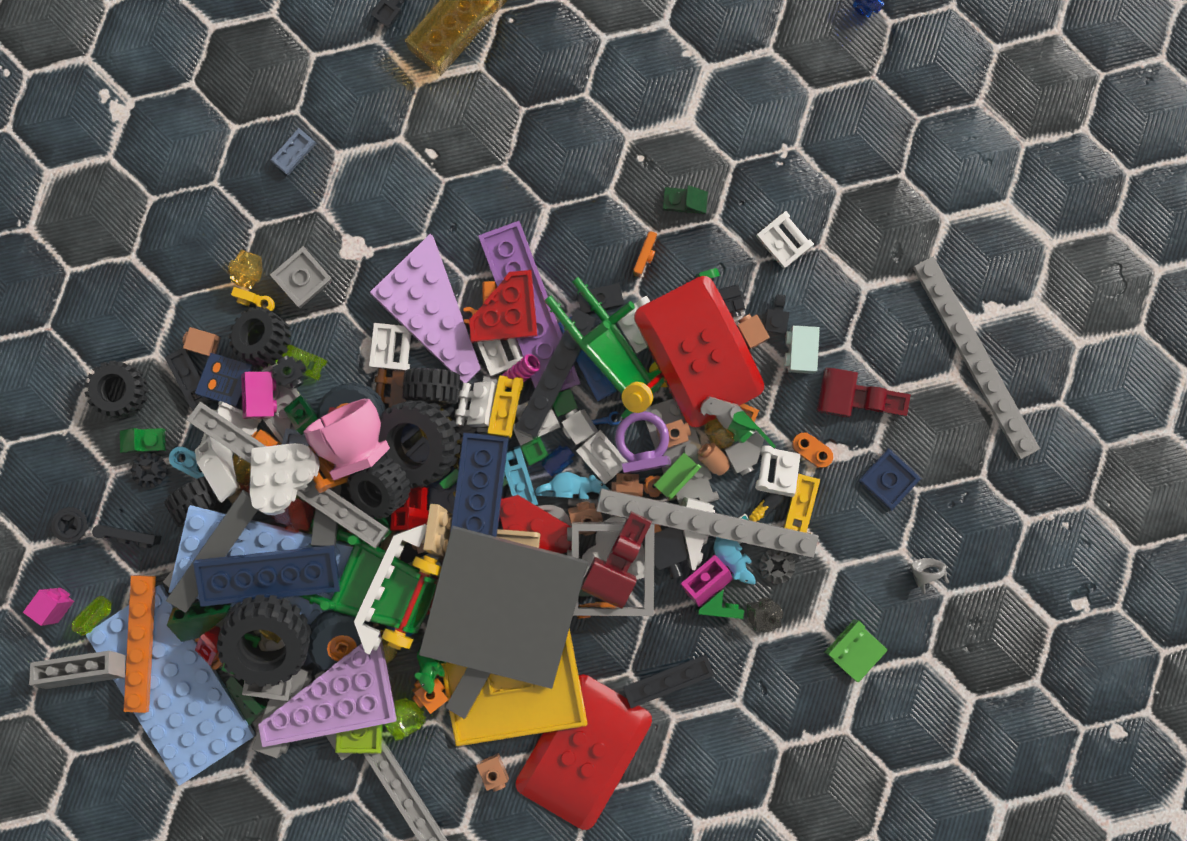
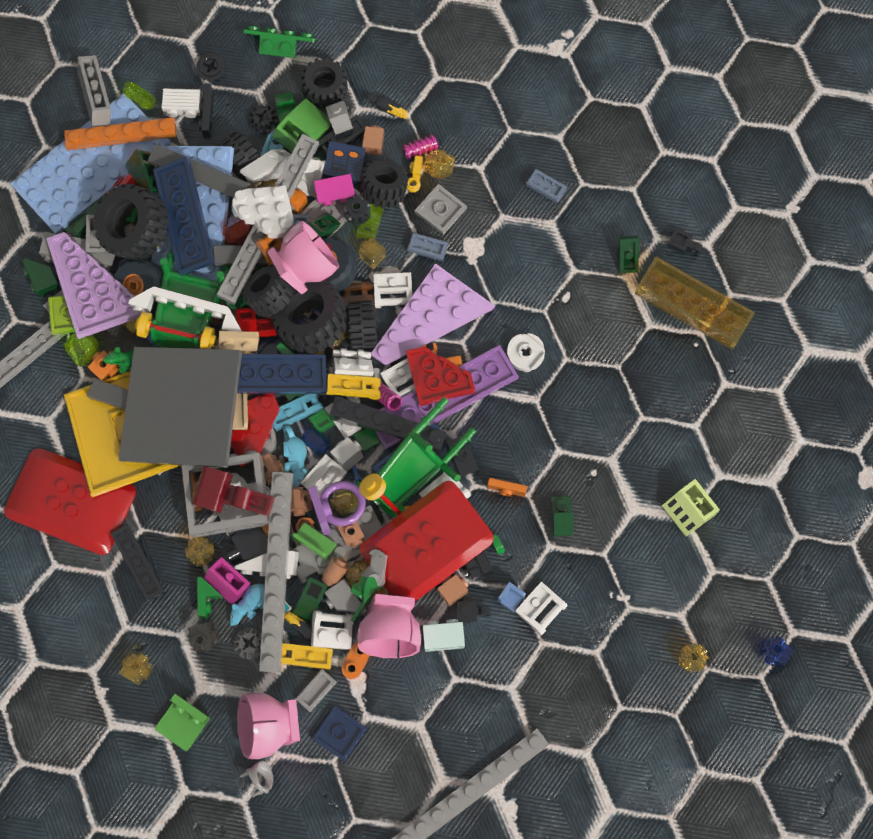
camera: 80 degrees right, 10 degrees down
(49, 606) = (142, 61): dark pink brick -> none
(53, 437) = (278, 43): none -> green bracket
(110, 565) = (181, 102): none -> white brick
(160, 318) = (388, 106): none -> black piece
(165, 377) = (339, 117): none -> light grey slope
(167, 422) = (304, 120): none -> bright green slope
(219, 289) = (419, 147): none -> dark pink piece
(306, 758) = (42, 278): none -> dark green slope
(342, 364) = (372, 252): none -> clear yellow brick
(345, 299) = (427, 247): none -> sand blue plate
(393, 73) = (628, 254): none -> dark green slope
(491, 196) = (536, 352): none -> white plate
(493, 772) = (44, 427): nougat brick -> none
(636, 437) = (344, 501): none -> clear yellow head
(661, 601) = (202, 557): none -> clear yellow brick
(699, 58) = (690, 508): none -> yellowish green slope
(739, 489) = (310, 599): none -> dark green slope
(768, 270) = (511, 597): none -> medium blue panel
(788, 405) = (387, 622): none -> bright pink plate
(795, 701) = (129, 665): none -> clear yellow brick
(839, 499) = (316, 690): none -> light grey tile
(841, 393) = (410, 678): dark red plate -> none
(863, 93) = (686, 660): none -> clear yellow brick
(877, 556) = (265, 724): none -> bright pink plate

